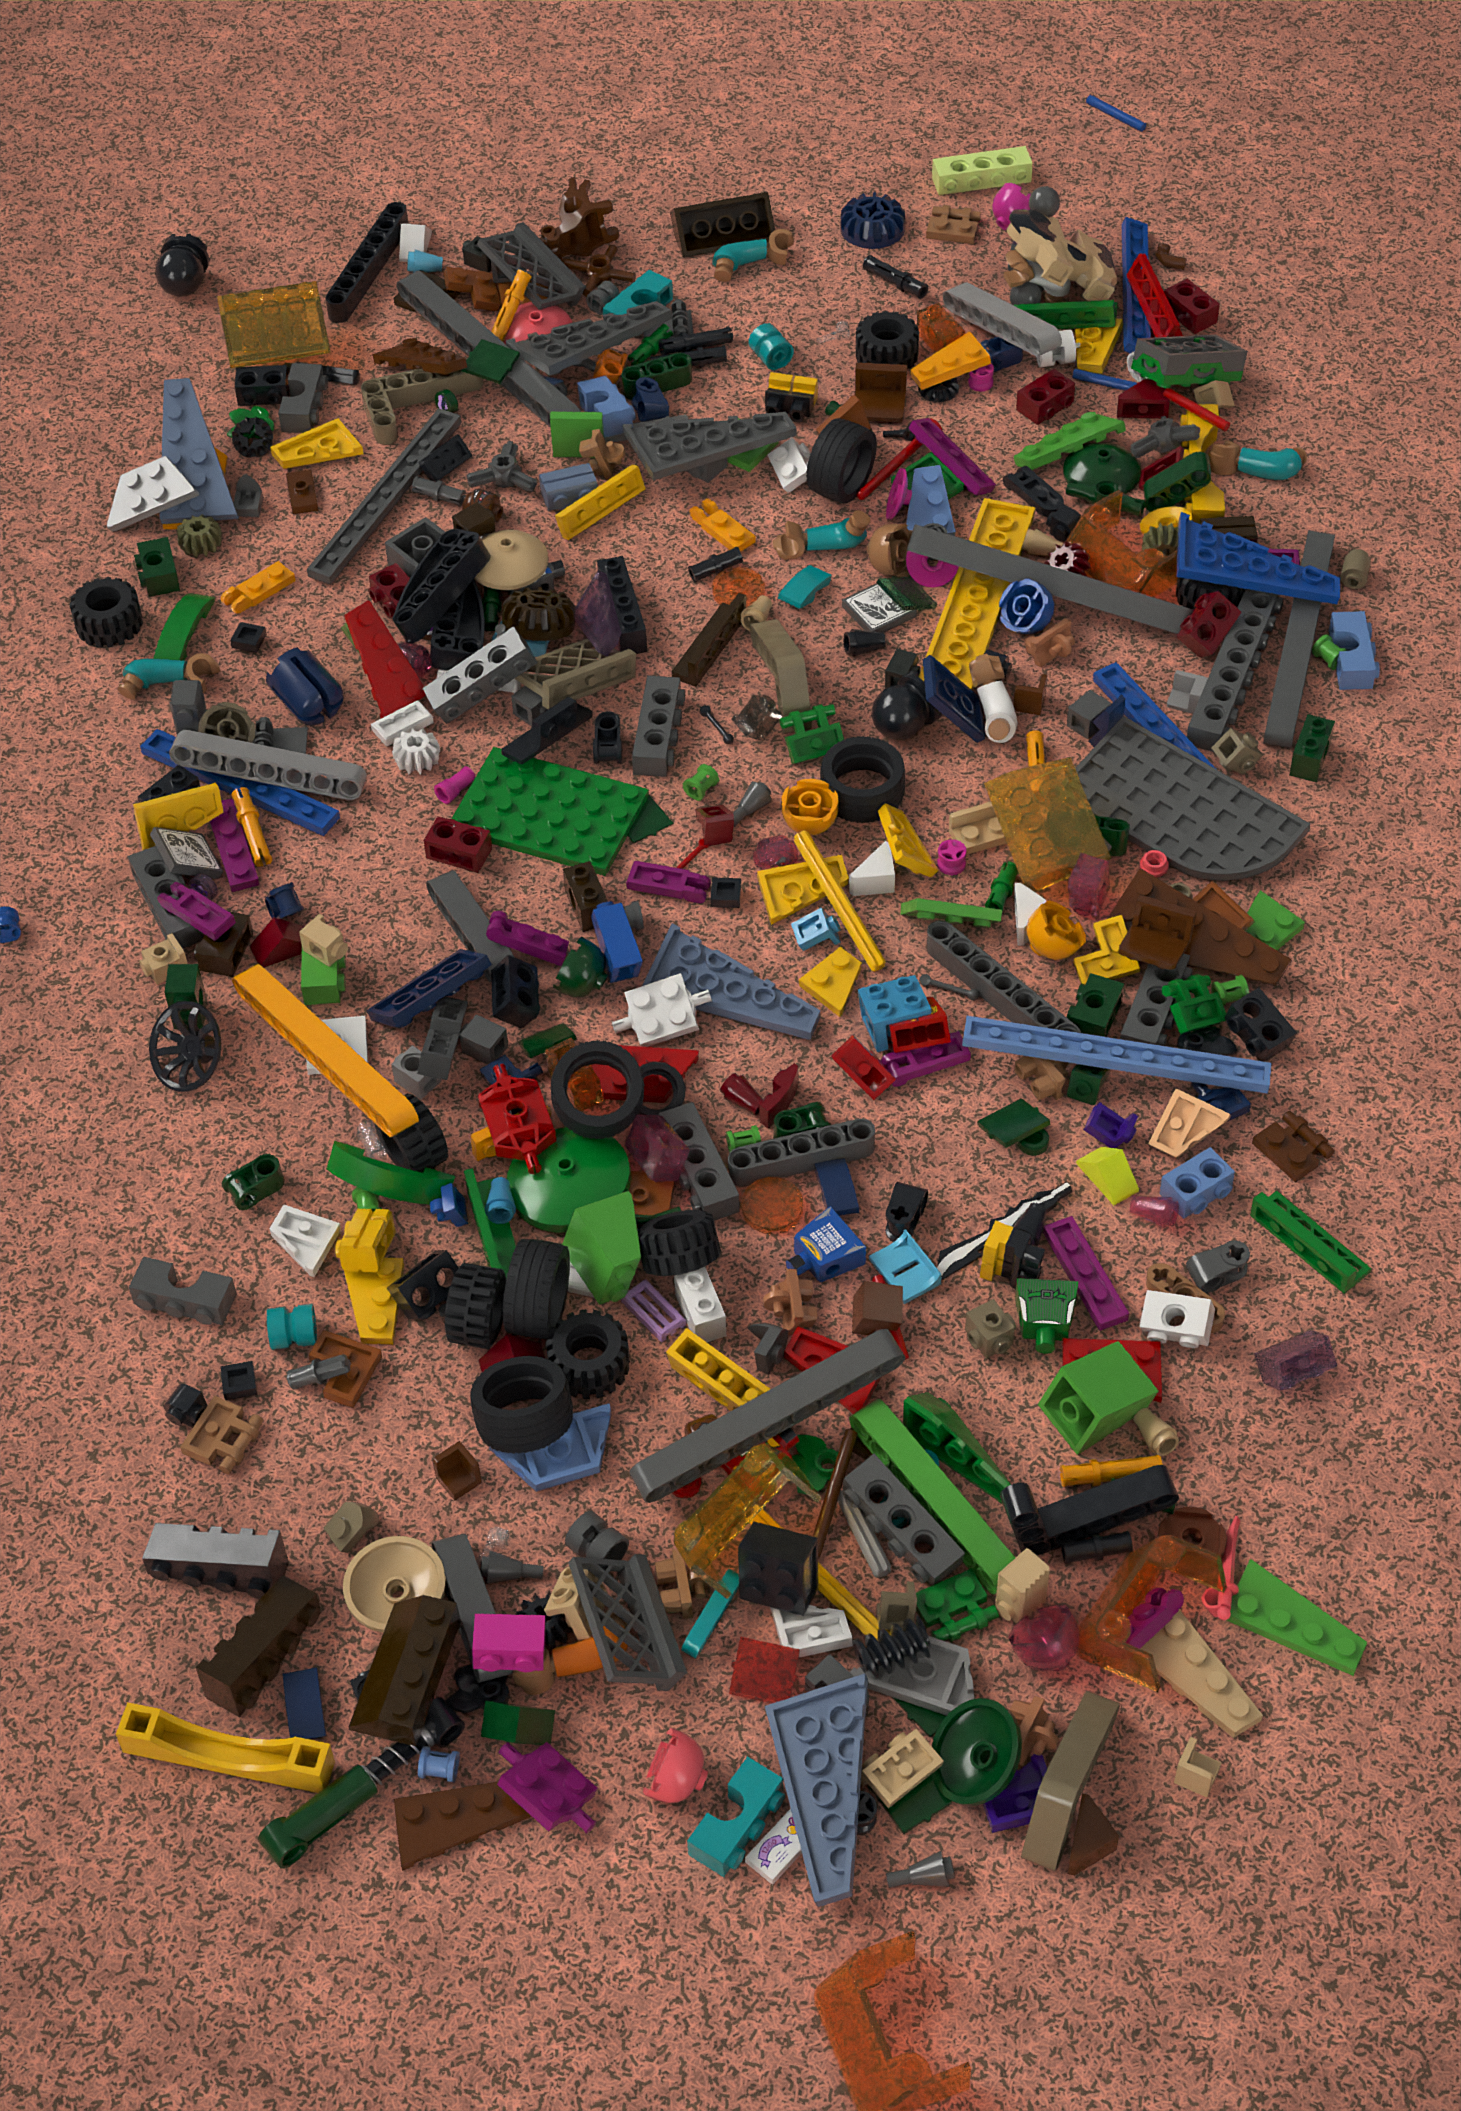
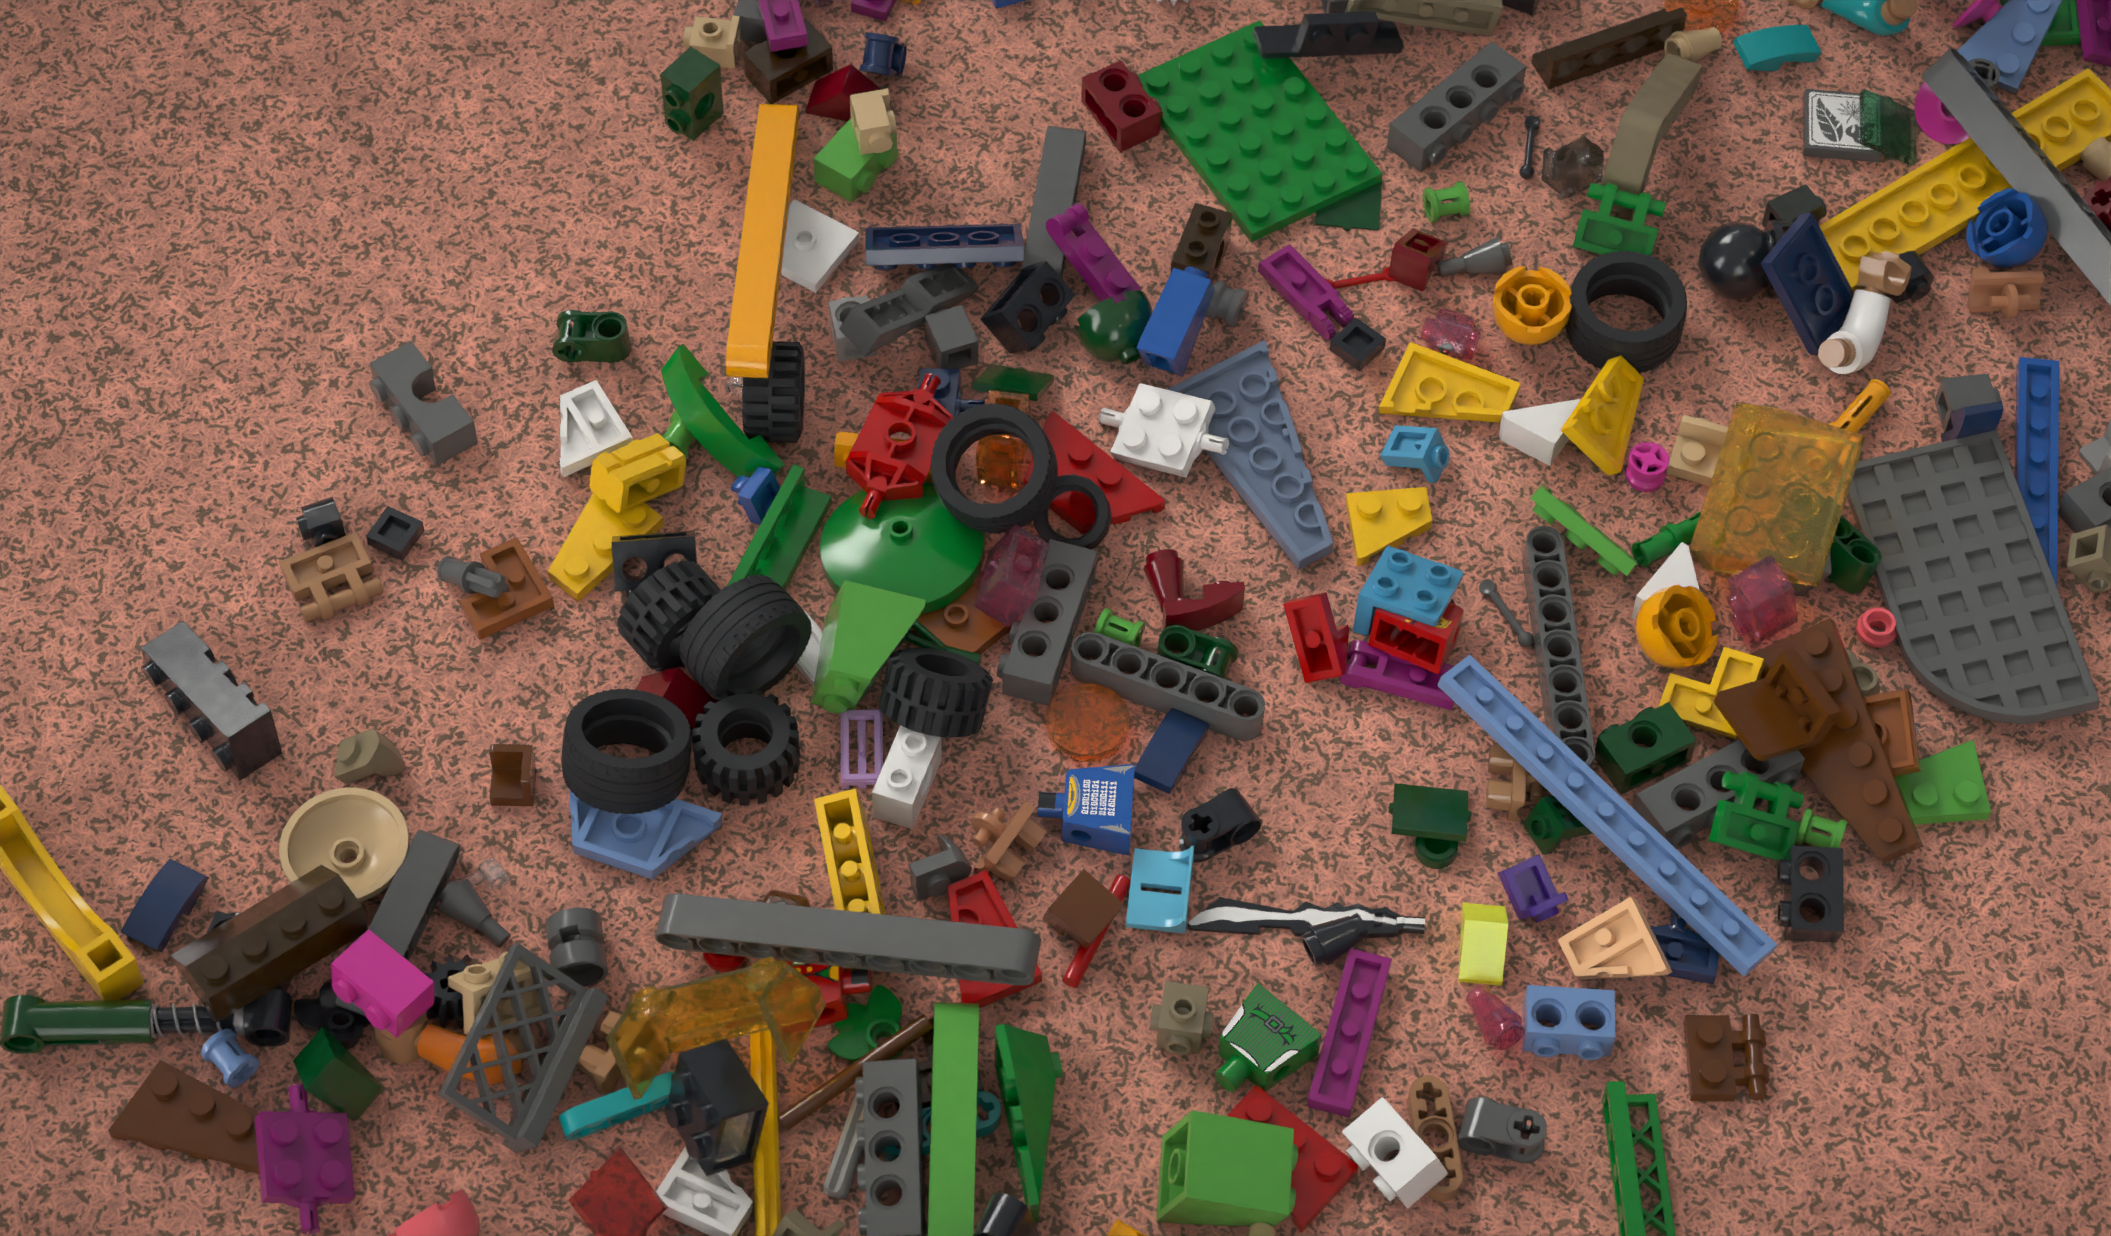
camera: 35 degrees right, 5 degrees up
(192, 1046) = (656, 154): black wheel -> none
(258, 1646) = (170, 813): dark brown wedge -> none
(291, 1326) = (488, 512): teal wheel -> none
(449, 788) = (1170, 38): dark pink pin -> none
(500, 1203) = (802, 526): dark azure cone -> none
(607, 741) = (1387, 88): black piece -> none
(839, 901) = (1469, 434): yellow axle -> none
(861, 642) = (1783, 153): black cone -> none
(887, 546) = (1906, 59): medium nougat cylinder -> none
(1010, 1255) = (1277, 950): hips -> none
(1030, 699) = (1917, 340): reddish brown panel -> none
(1208, 1041) = (1739, 874): black plate -> none

